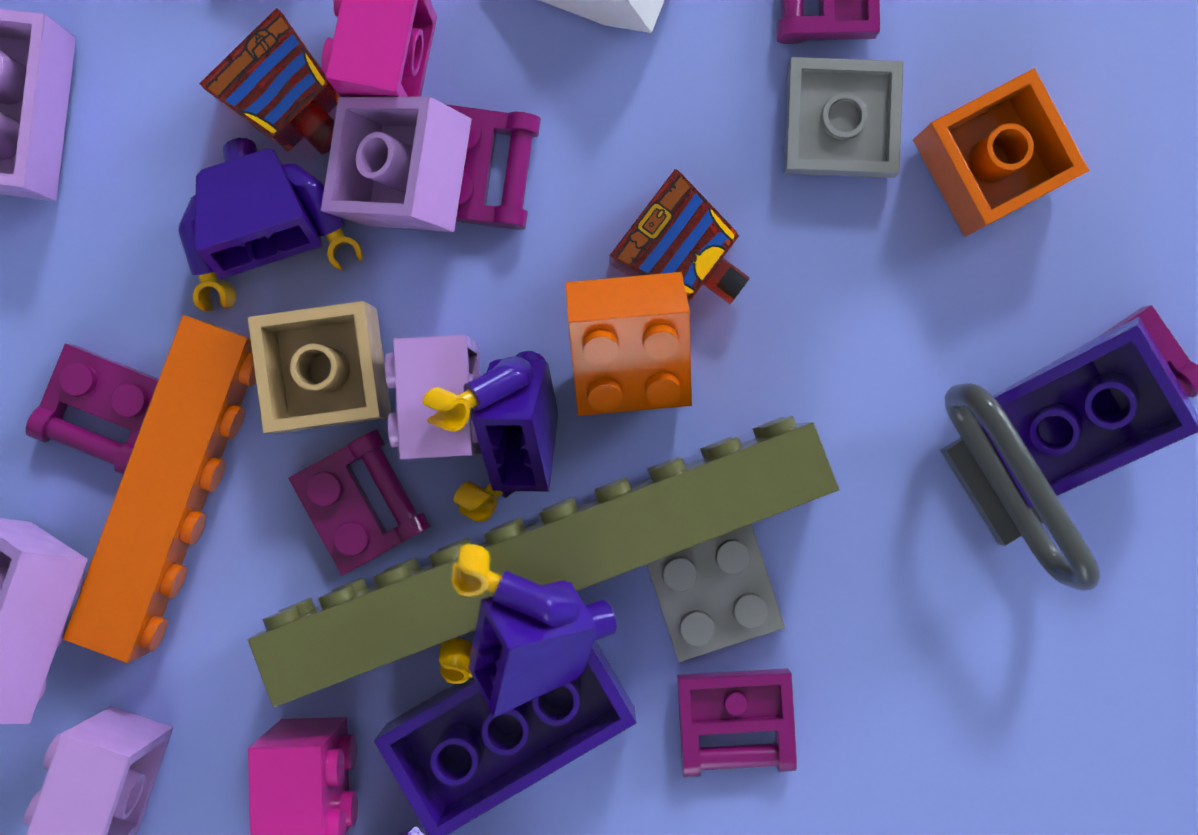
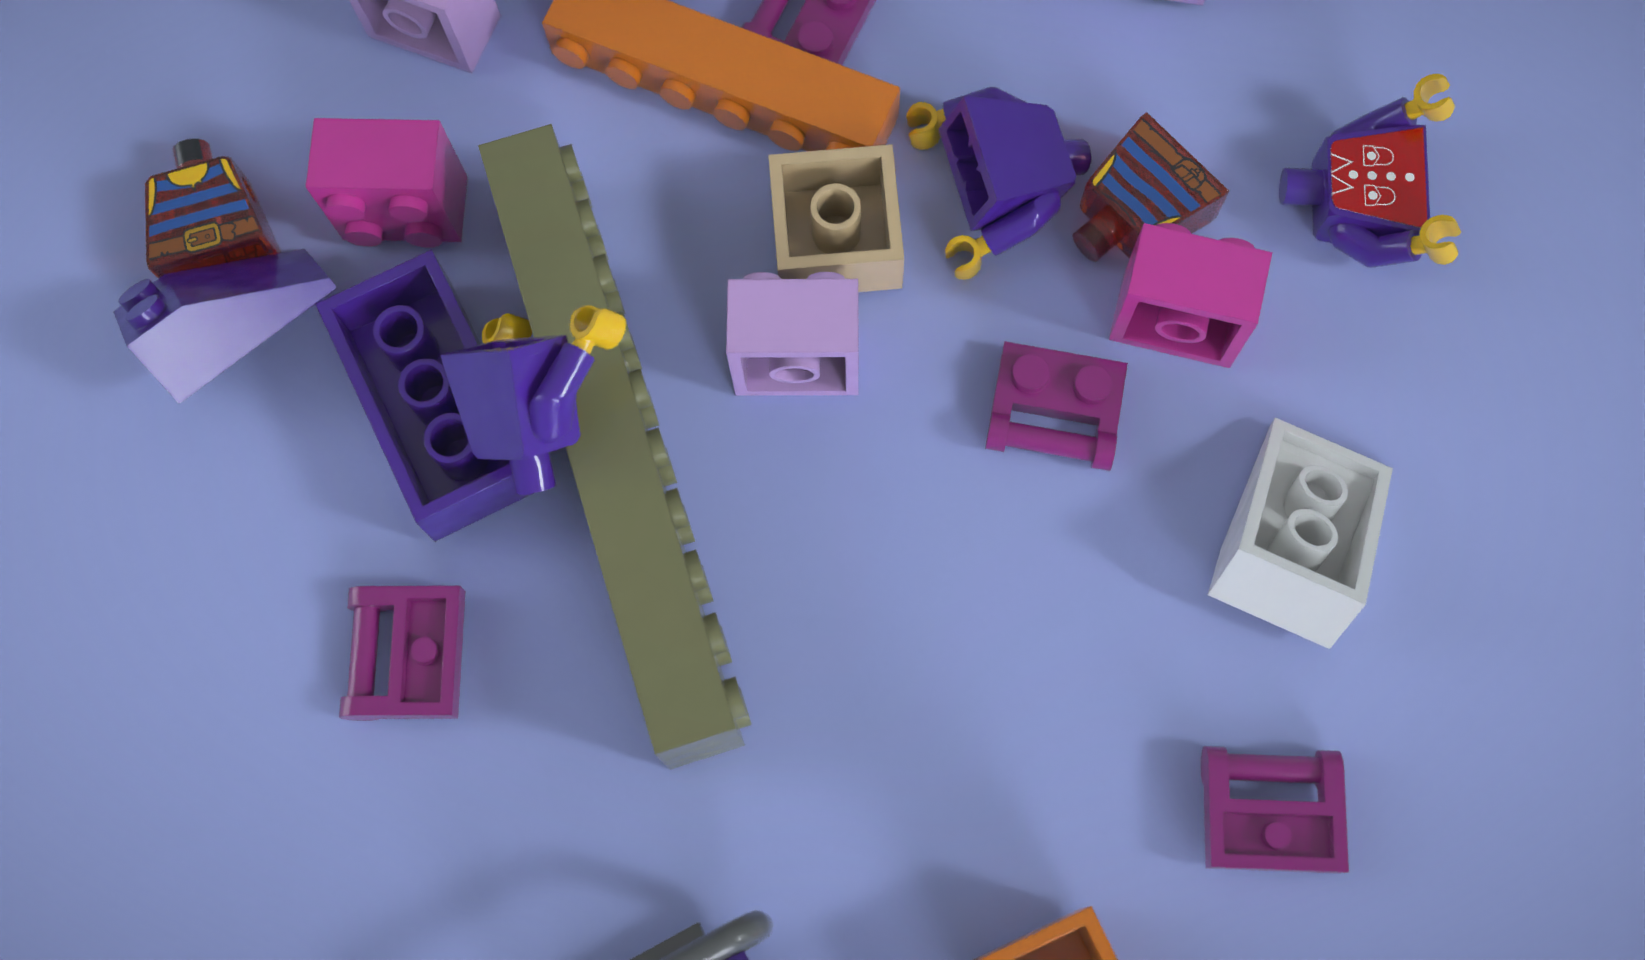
camera: 90 degrees right, 15 degrees down
(343, 509) = (680, 247): magenta plate -> none
(396, 163) = (1056, 304): lavender brick -> none
(513, 424) = (764, 410): dark purple torso -> none
(630, 343) = (843, 541): orange brick -> none
(682, 235) = (957, 615): torso -> none
(716, 594) = (554, 639): light grey plate -> none
(843, 117) = (1107, 819): light grey plate -> none

